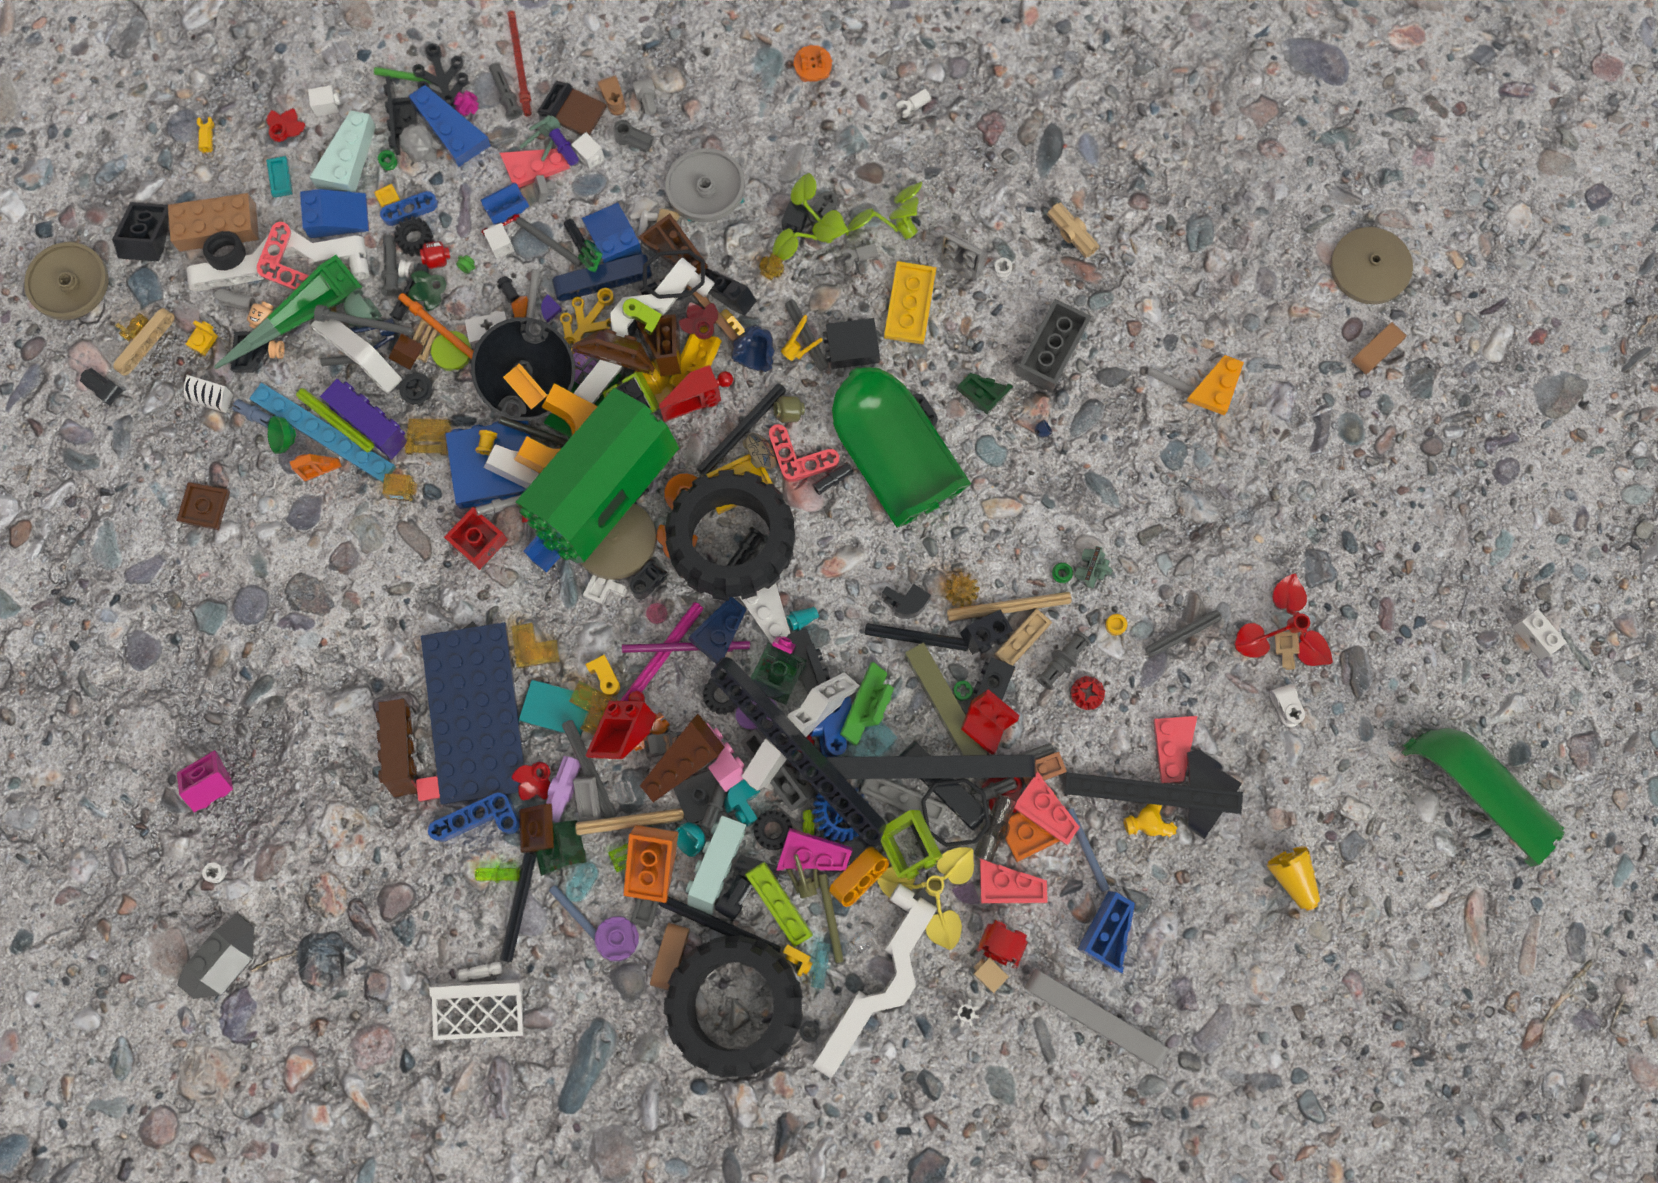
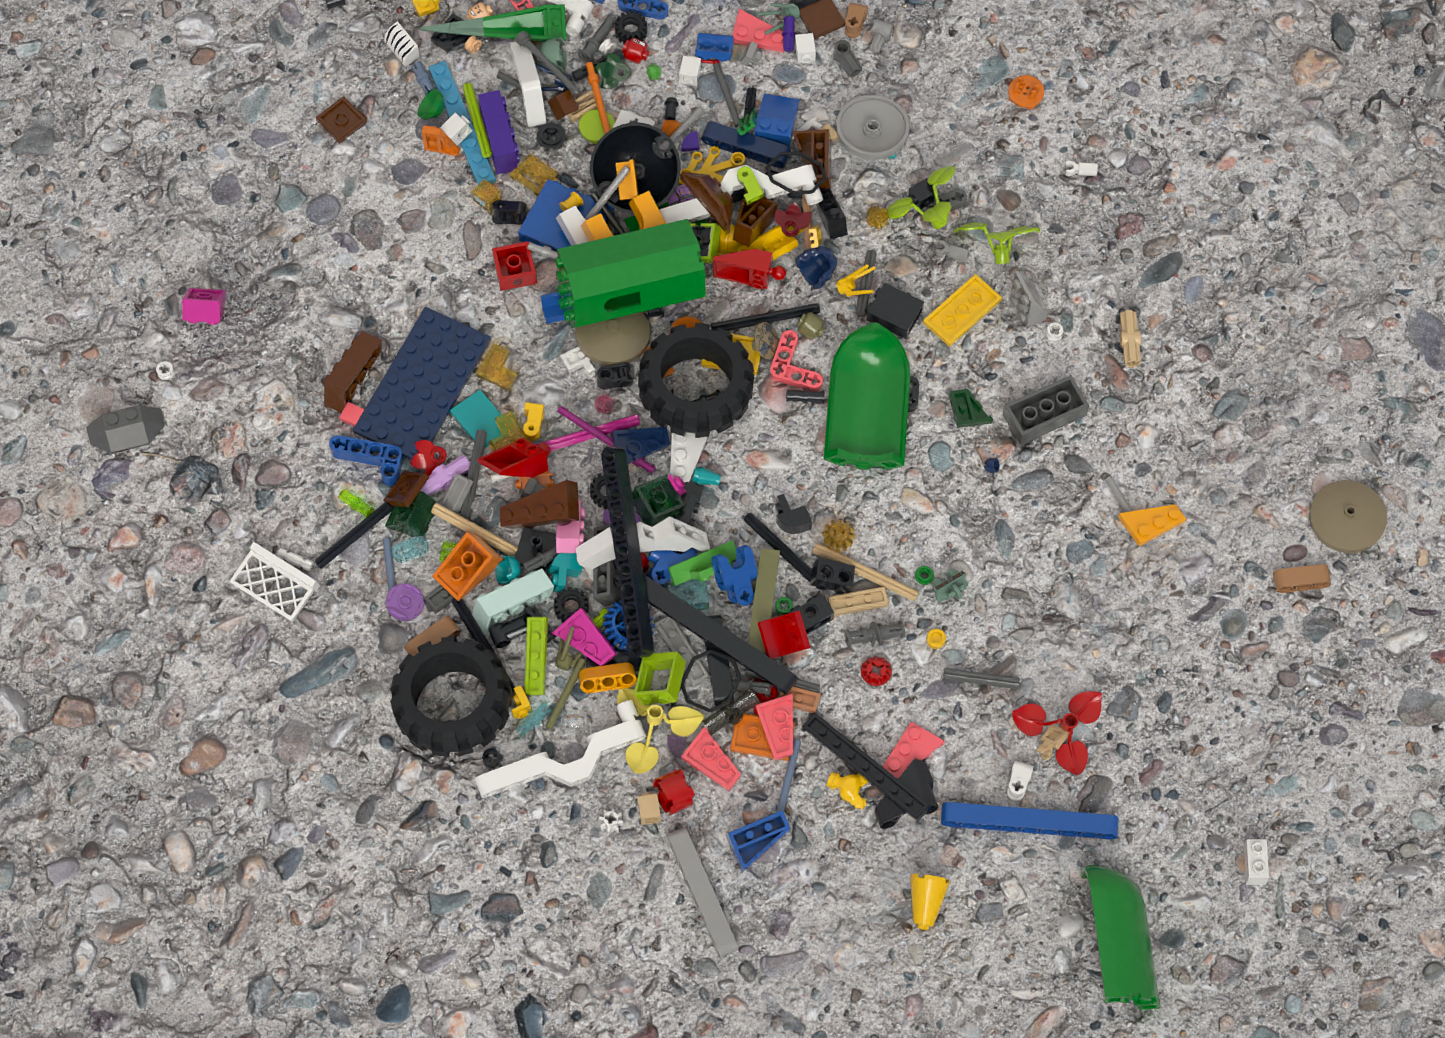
camera: 35 degrees right, 10 degrees down
(322, 442) = (457, 128): none -> white brick
(433, 488) = (511, 212): none -> black piece
(516, 410) = (607, 194): none -> light grey bar
(905, 698) = (738, 577): none -> blue piece
(1324, 737) = (1029, 820): none -> blue beam

